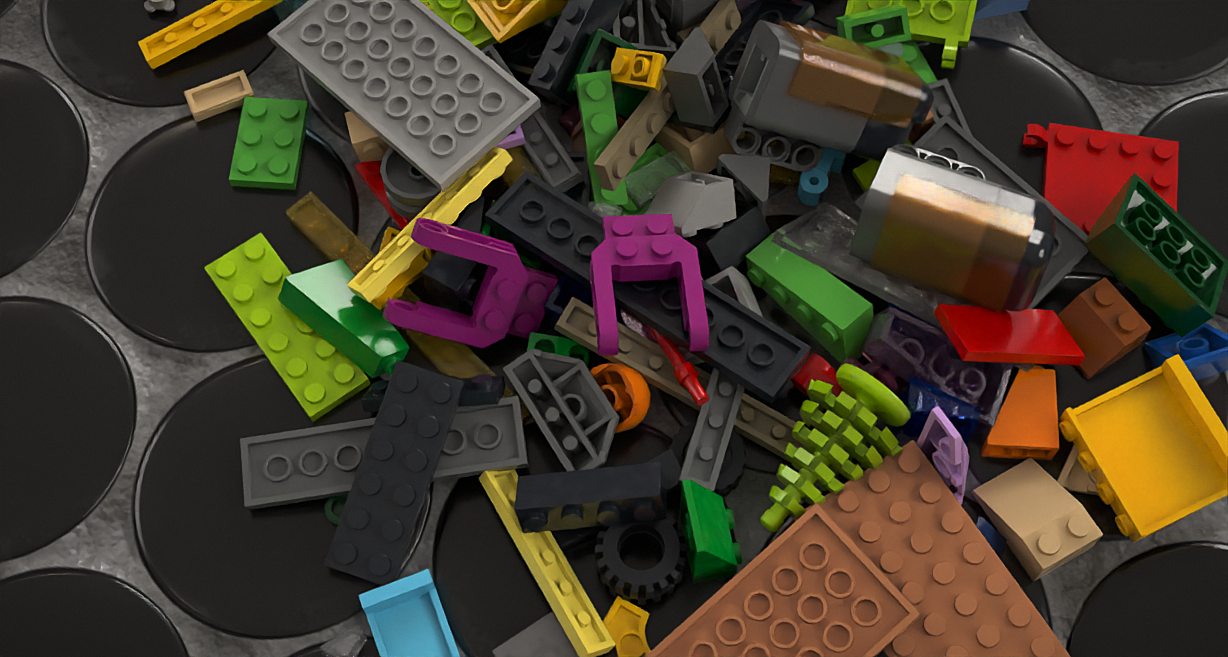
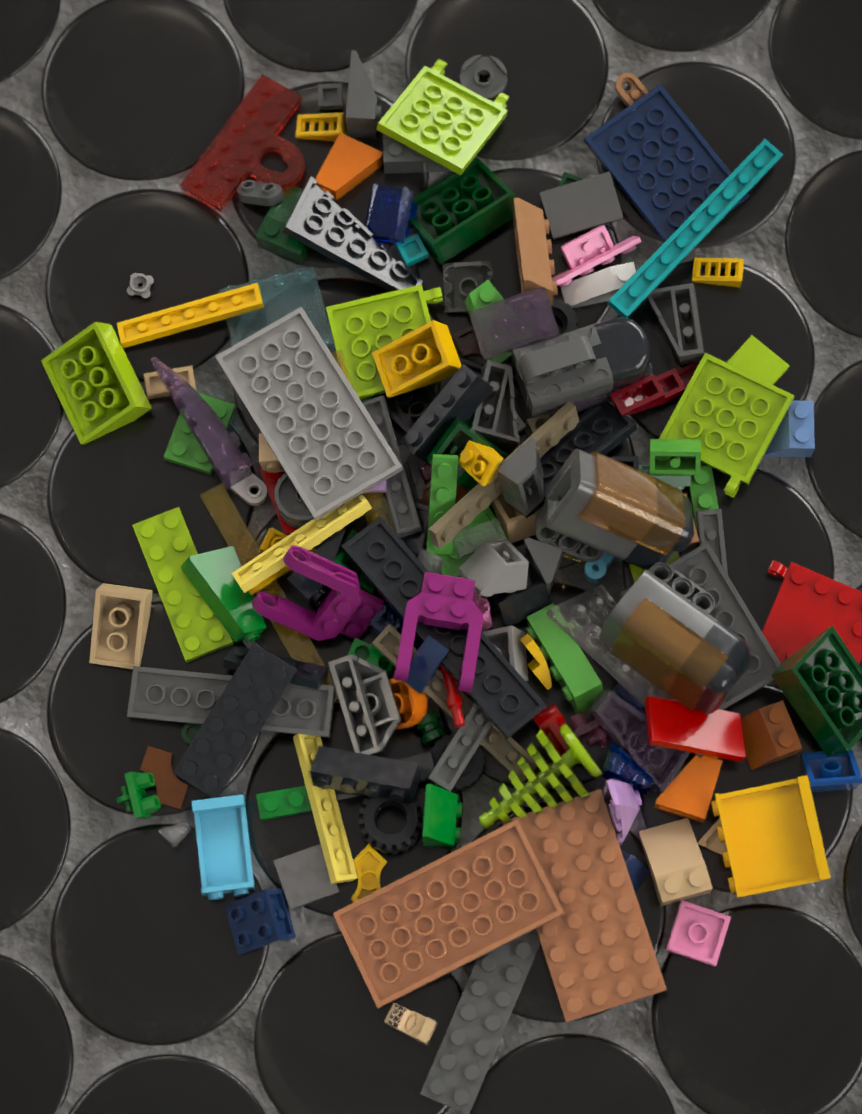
camera: 15 degrees right, 10 degrees up
(123, 113) = (96, 383): none -> lime slope
(211, 394) = (120, 625): none -> tan slope
(275, 126) = (208, 429): none -> clear purple wedge
(277, 611) = (135, 796): none -> green hips
(302, 564) = (169, 788): none -> reddish brown tile
(339, 189) = (243, 489): none -> white plate
(487, 570) = (283, 803): none -> green plate
(635, 332) = (425, 663): none -> dark blue slope
(660, 424) = (431, 728): none -> dark green wheel
(781, 309) = (539, 664): none -> yellow slope
(1097, 604) = (698, 933): none -> bright pink tile

